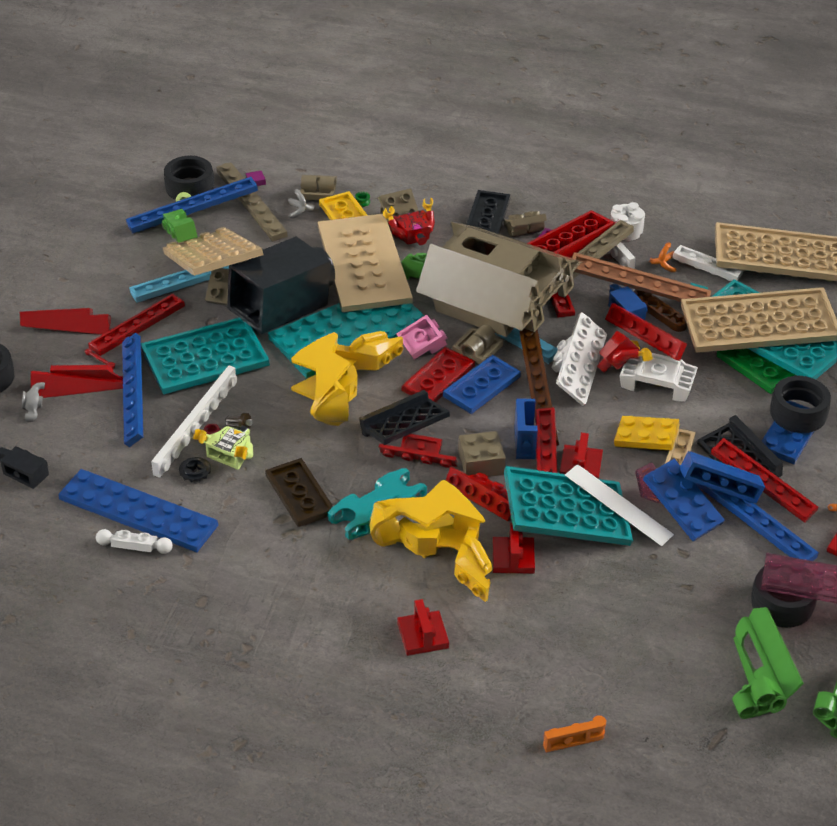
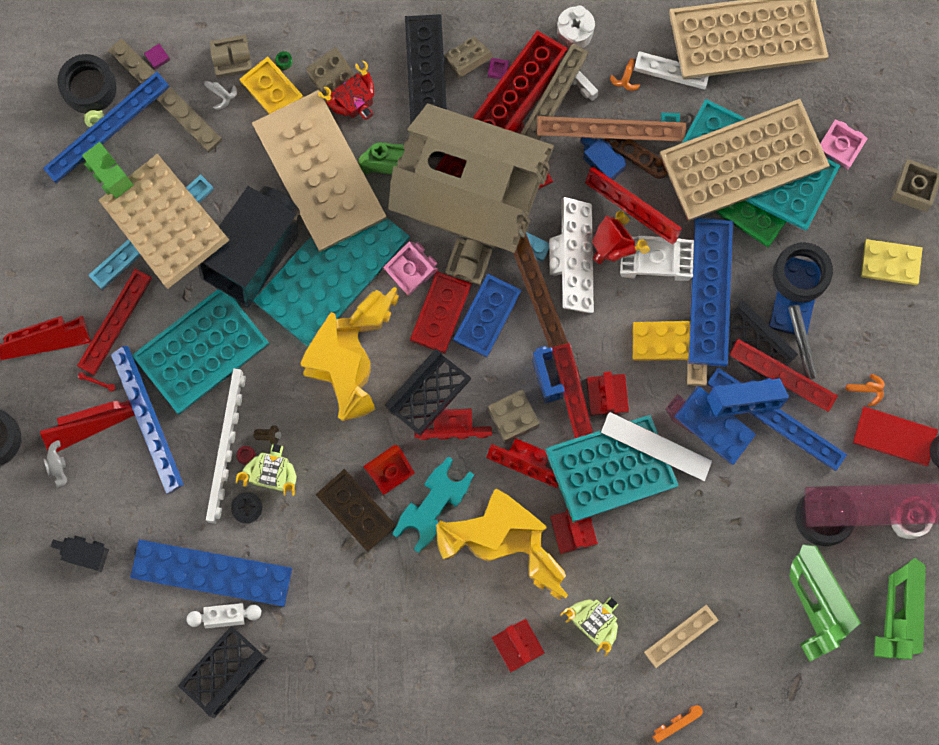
camera: 15 degrees left, 35 degrees up
(114, 594) = (234, 684): none -> black fence
(345, 464) = (389, 469): none -> red bracket
(510, 624) = (595, 621): none -> torso
(600, 661) = (681, 636): none -> tan plate
(704, 407) = (710, 292): none -> blue plate
(789, 456) = (802, 342): none -> dark grey axle

